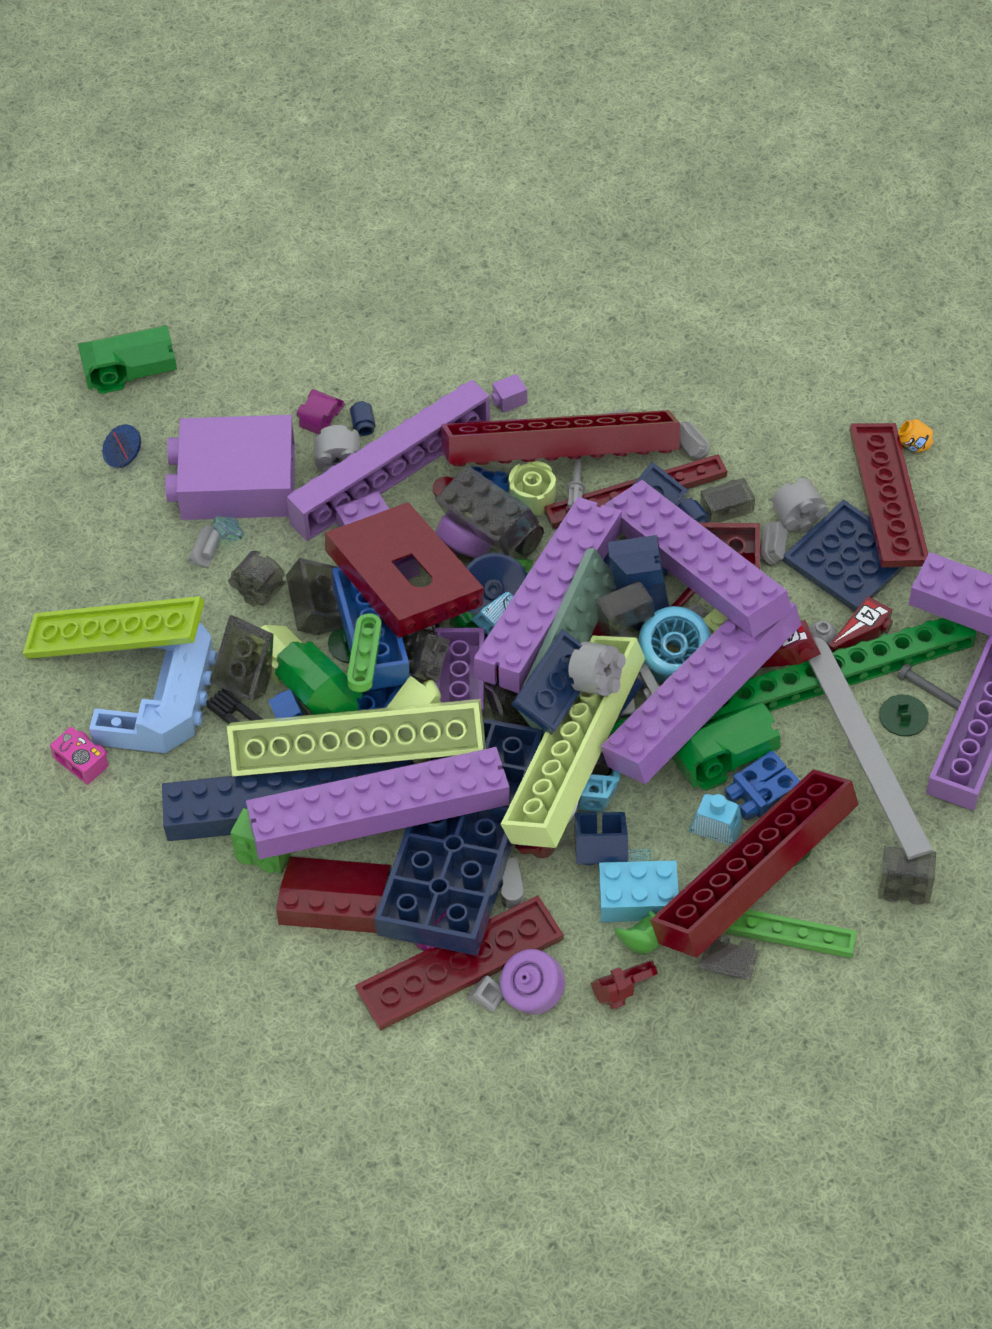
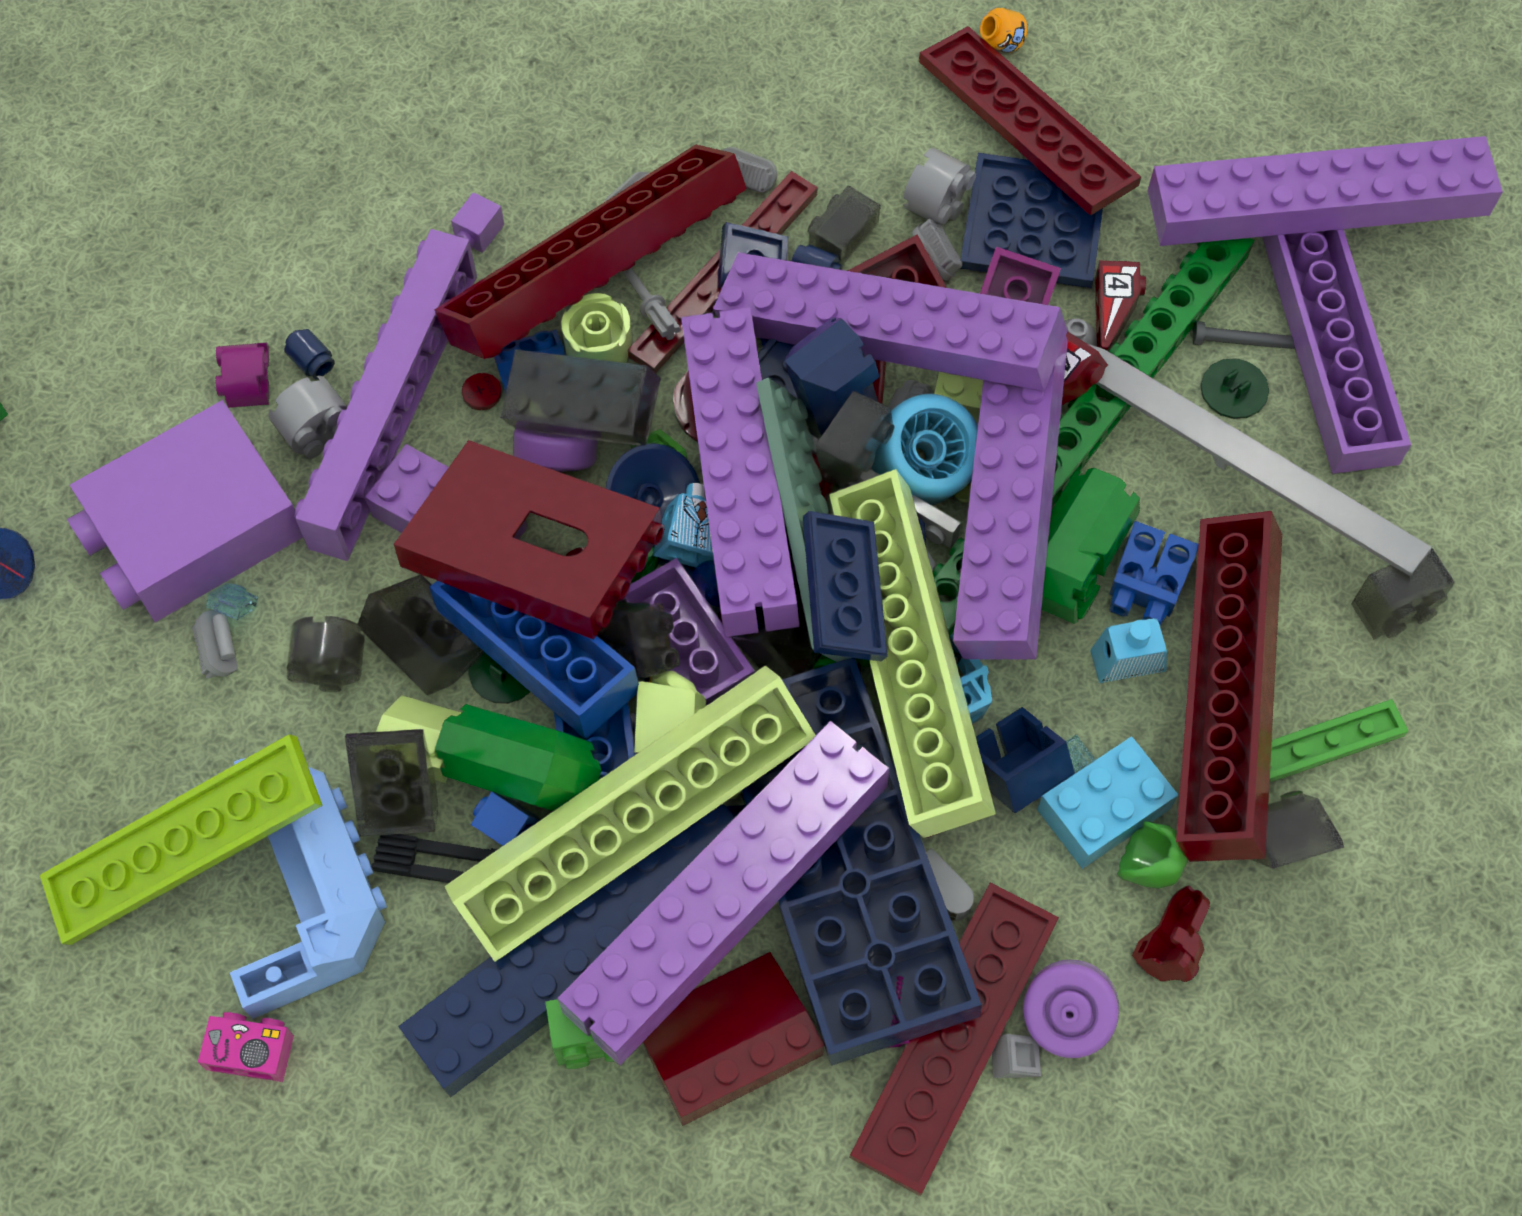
camera: 35 degrees left, 10 degrees up
(364, 653) = (571, 689): bright green plate -> none
(596, 668) = (892, 541): light grey brick -> none
(804, 585) = (1019, 278): none -> magenta brick

